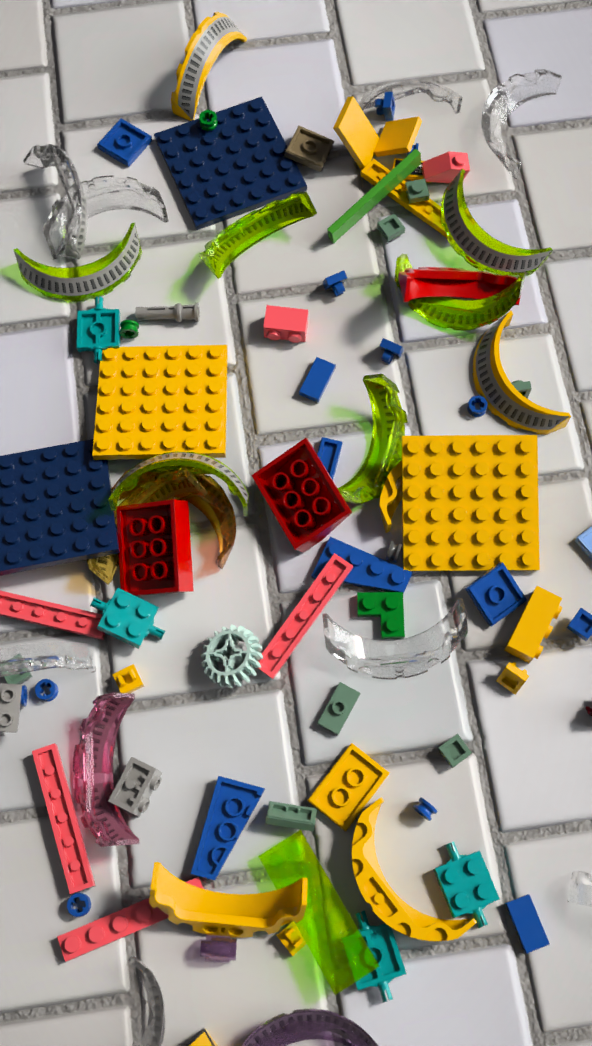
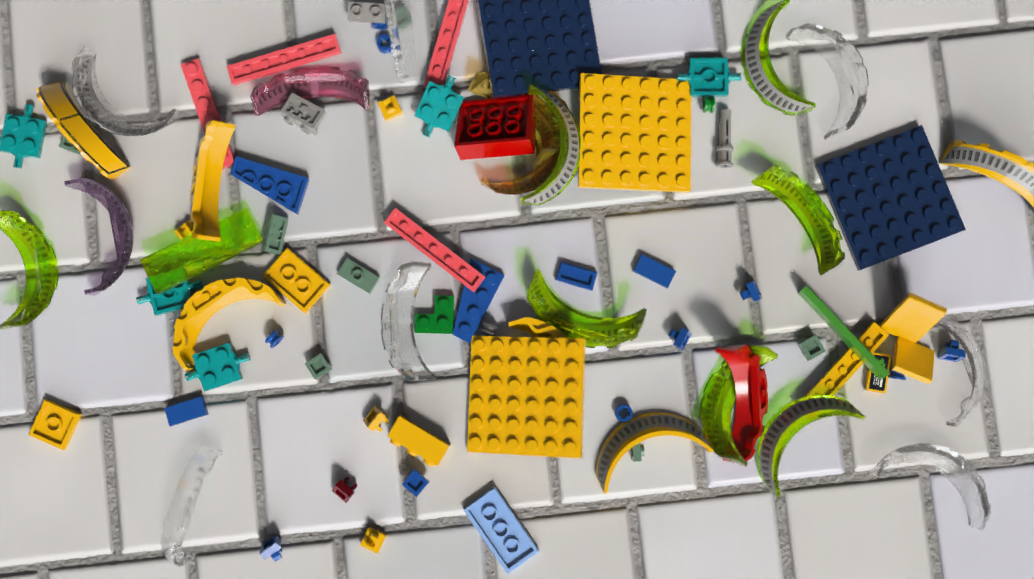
camera: 90 degrees right, 15 degrees up
(75, 912) = (215, 70): blue bush -> none
(76, 227) = (846, 48): clear windscreen -> none
(124, 142) = (914, 98): blue tile -> none
(208, 114) = (935, 170): green bush -> none
(218, 948) = (181, 176): clear purple brick -> none
(237, 663) = (415, 193): light aqua gear -> none
(285, 323) = (709, 244): coral brick -> none
(302, 496) = (535, 249): red slope -> none
(309, 148) = (902, 273): dark tan tile -> none
(417, 191) = (849, 374): sand green plate -> none
(445, 167) = (875, 404): coral slope -> none
(495, 594) = (446, 411): blue tile -> none

